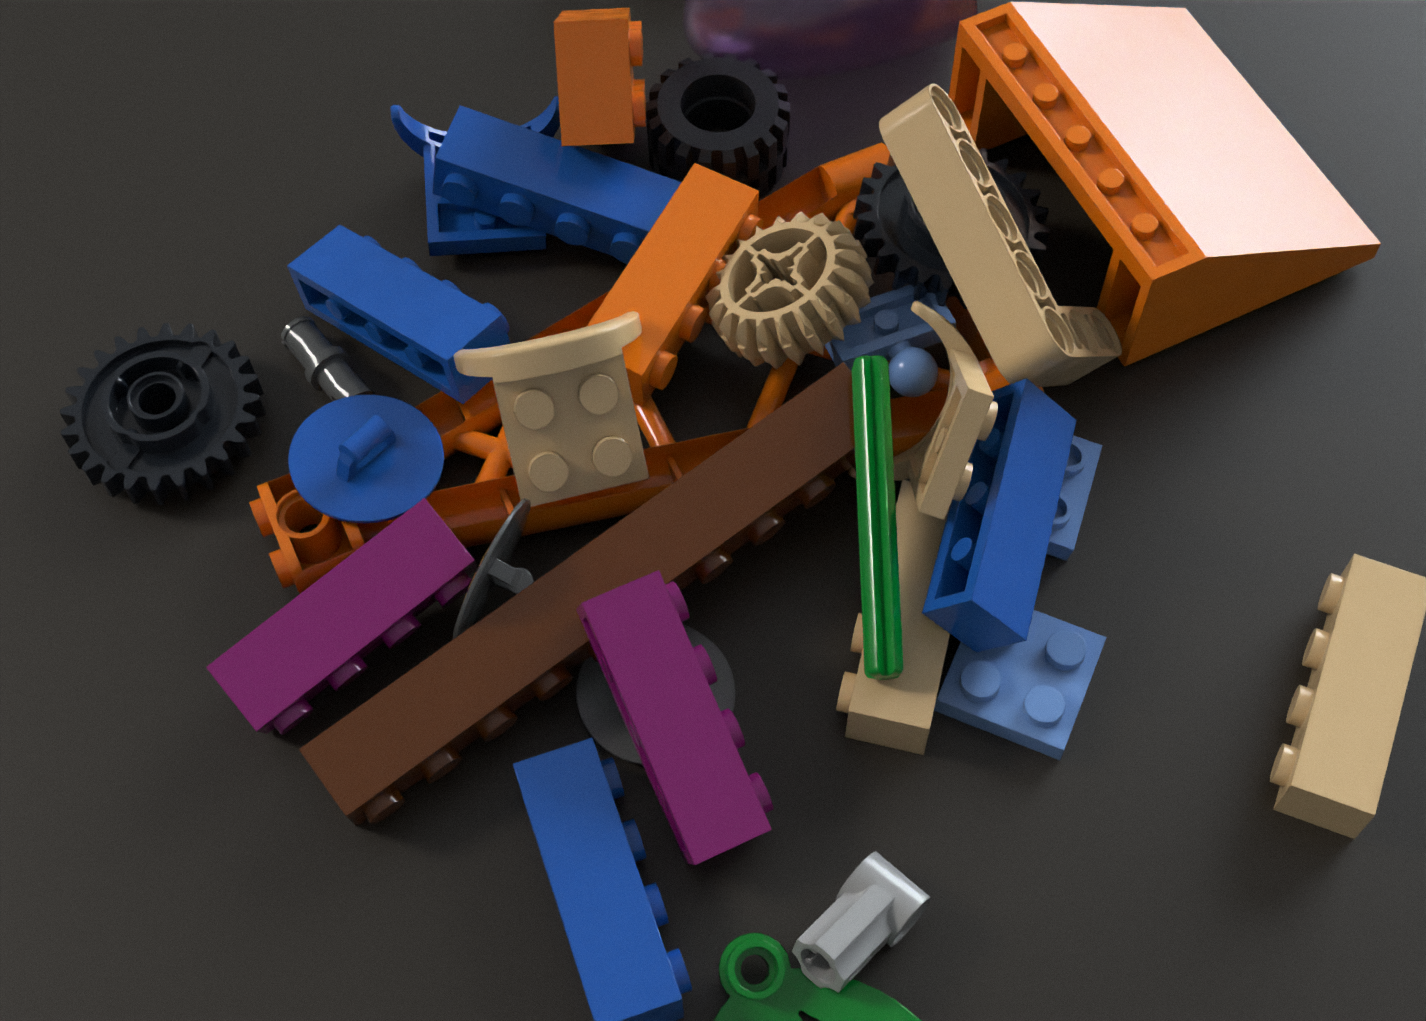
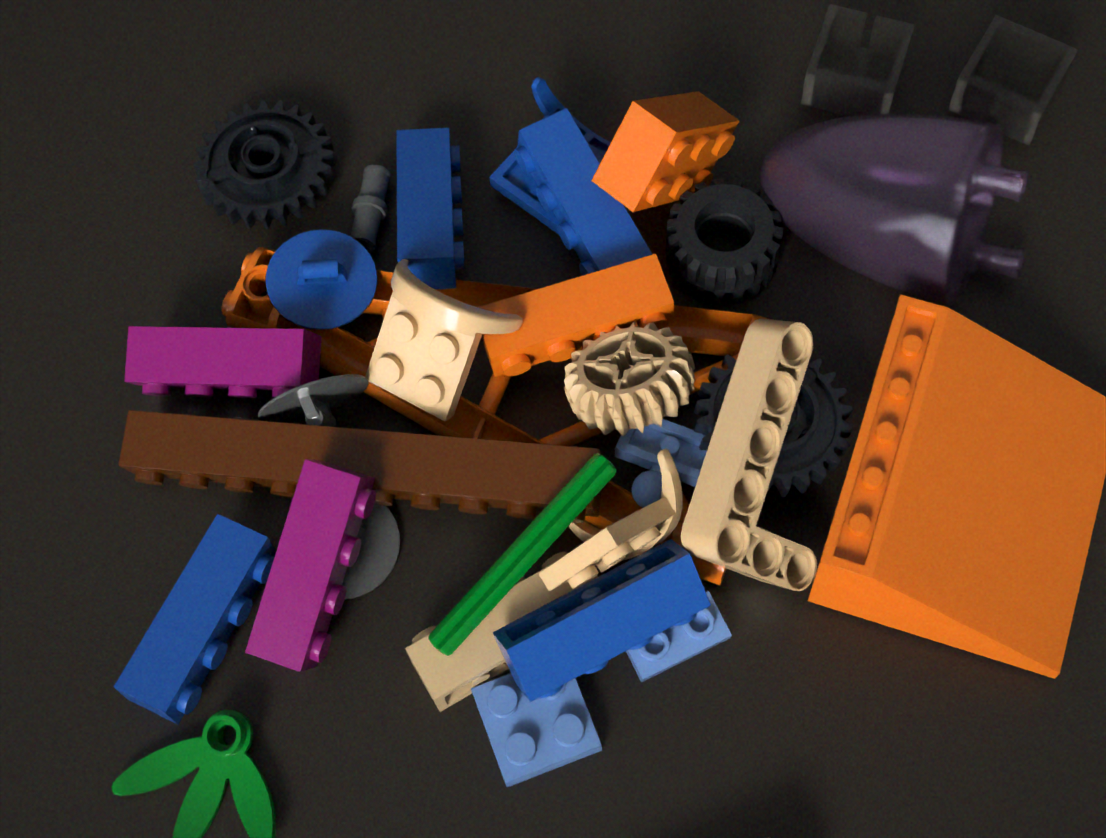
camera: 50 degrees right, 5 degrees up
(870, 910) = (314, 764): light grey piece -> none

